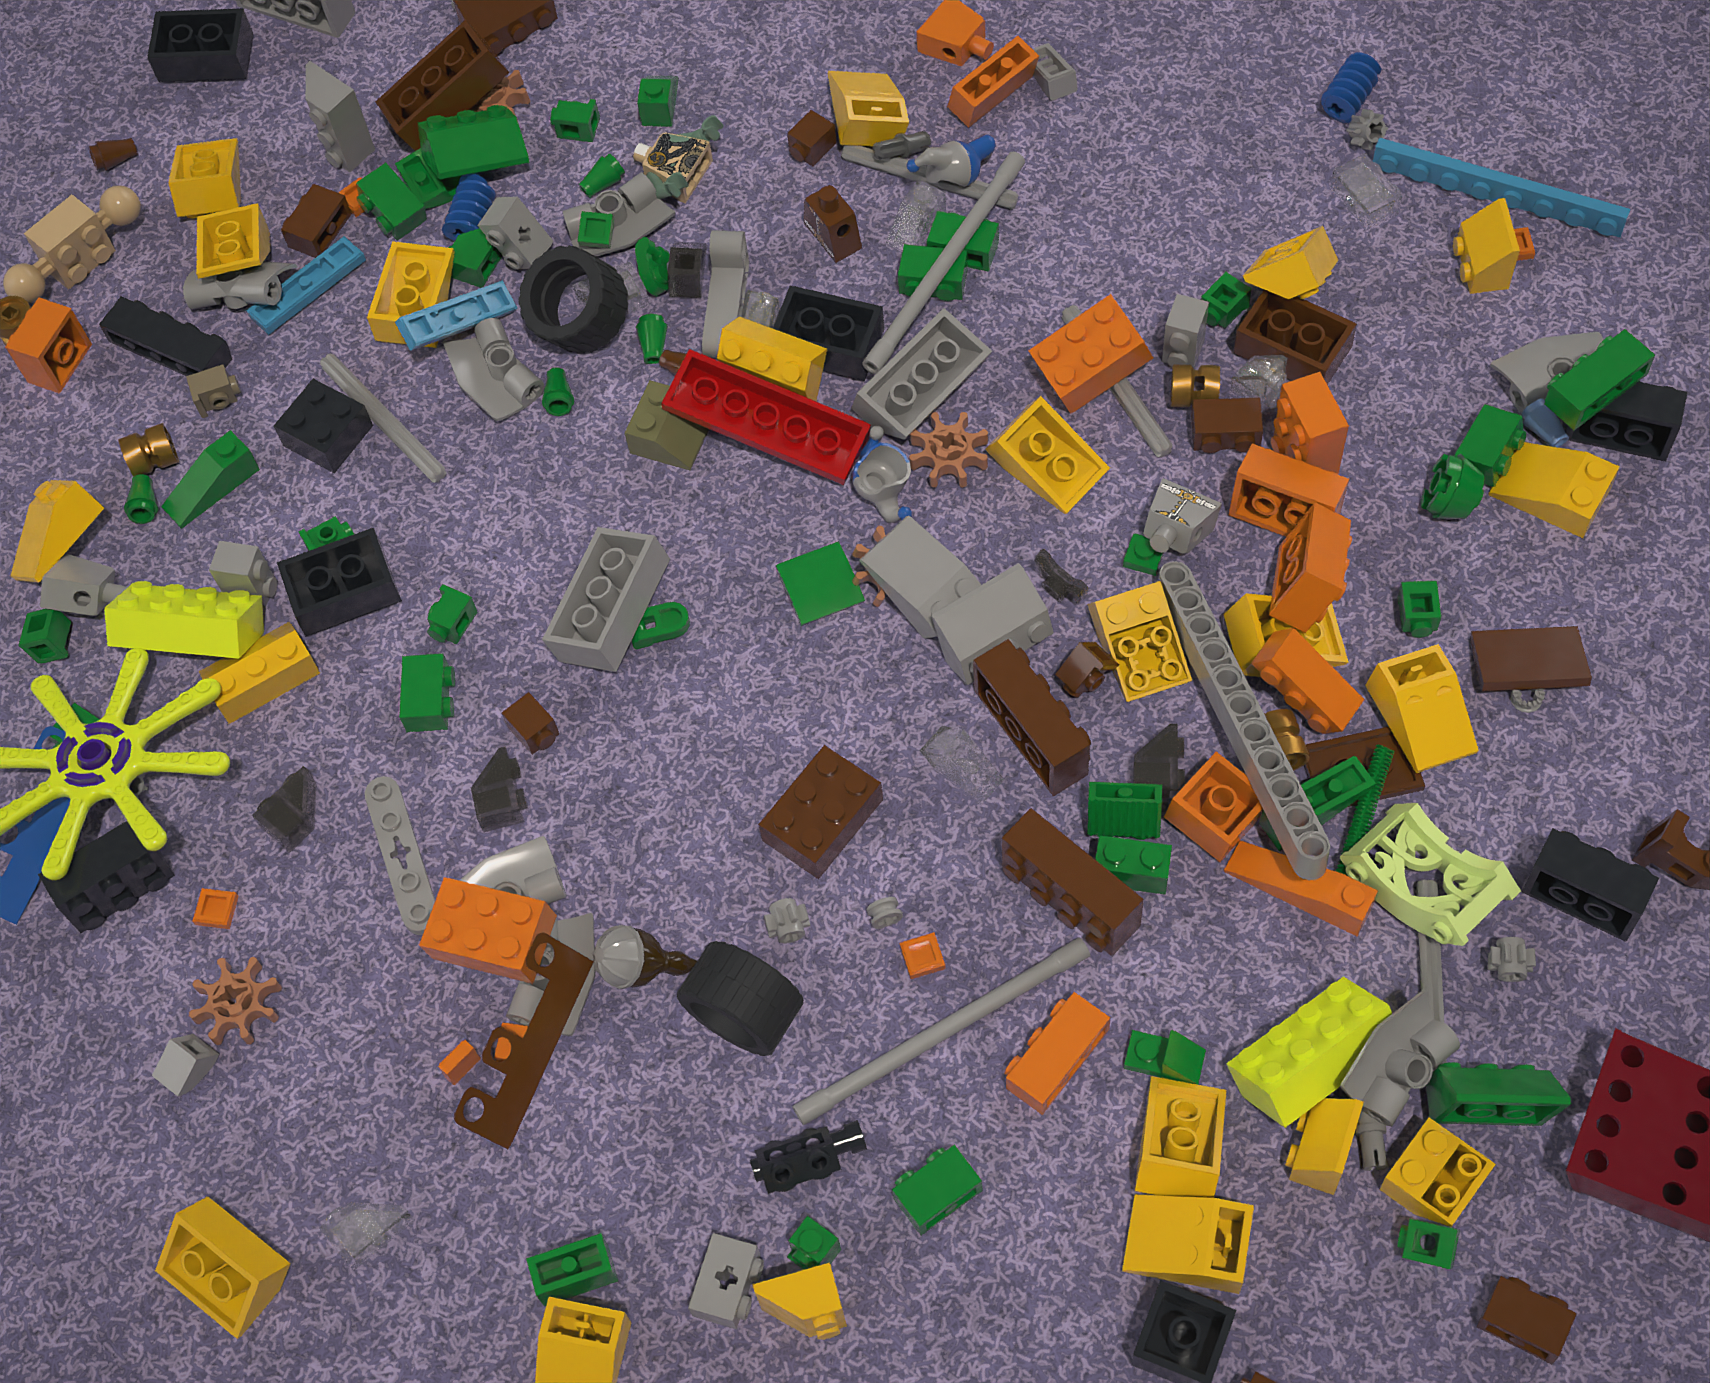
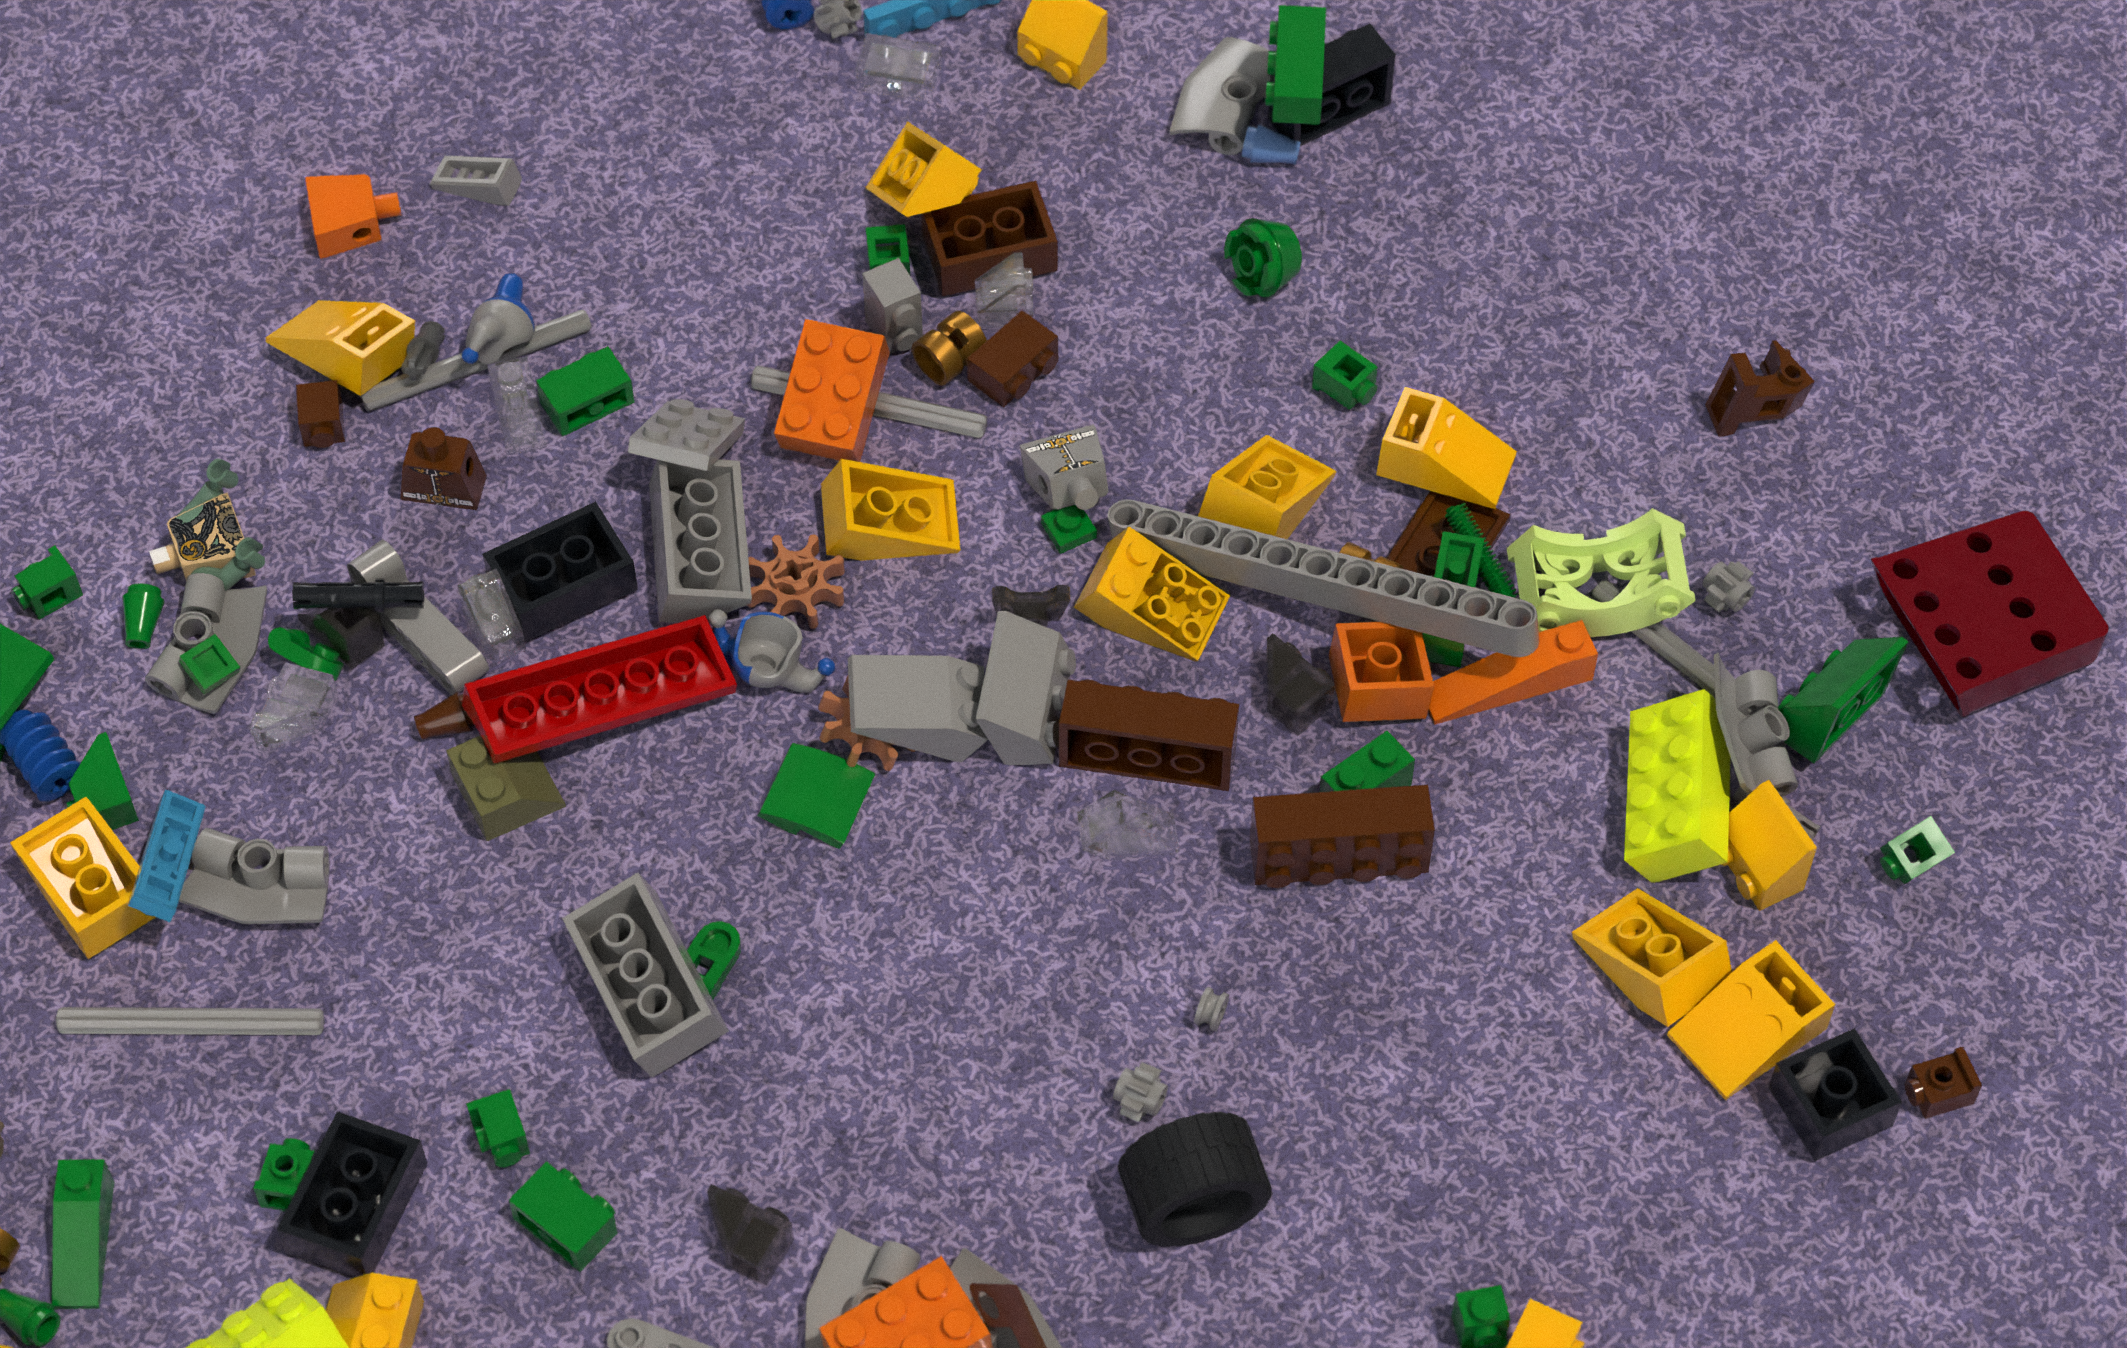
camera: 55 degrees left, 5 degrees down
(243, 568) = (244, 1268): light grey brick -> none
(323, 425) = (143, 1077): black brick -> none
(514, 232) = (131, 731): light grey brick -> none
(531, 723) = (702, 1149): reddish brown brick -> none
(547, 281) = (232, 716): black tyre -> none
(557, 393) = (351, 846): green cone -> none
(634, 958) = (1046, 1248): light grey piece -> none
(652, 335) = (382, 717): green cone -> none
(657, 100) = (111, 498): green slope -> none
(707, 260) = (358, 595): none -> black pin
(773, 356) = (545, 627): yellow slope -> none
(805, 1162) = (1388, 1257): black brick -> none
(821, 811) = (1060, 977): reddish brown brick -> none
(826, 1099) = (1344, 1203): light grey piece -> none
(885, 346) = (640, 534): light grey piece -> none
(917, 262) = (589, 441): green brick -> none
(922, 955) = (1280, 1015): orange tile -> none
(936, 1188) = (1519, 1178): green brick -> none
(980, 311) = (687, 434): none -> light grey plate
(993, 81) = (444, 226): orange brick -> none
(1056, 1052) = (1482, 982): orange brick -> none
(1085, 668) = (1141, 658): reddish brown brick -> none
(1124, 809) = (1310, 741): green brick -> none
(1164, 1057) = (1563, 908): green slope -> none
(1279, 490) = (1144, 372): orange brick -> none
(1307, 681) = (1338, 505): orange brick -> none
(1310, 423) = (1105, 301): orange brick -> none
(1311, 568) = (1238, 410): orange brick -> none
(1436, 1175) = (1863, 796): yellow slope -> none
(1493, 442) = (1247, 189): green brick -> none
(1527, 707) = (1511, 370): light grey bush -> none
(1527, 1319) = (2040, 839): reddish brown brick -> none
(1530, 658) = (1473, 344): reddish brown tile -> none
(1557, 485) = (1336, 187): yellow slope -> none
(1590, 884) = (1724, 473): black brick -> none

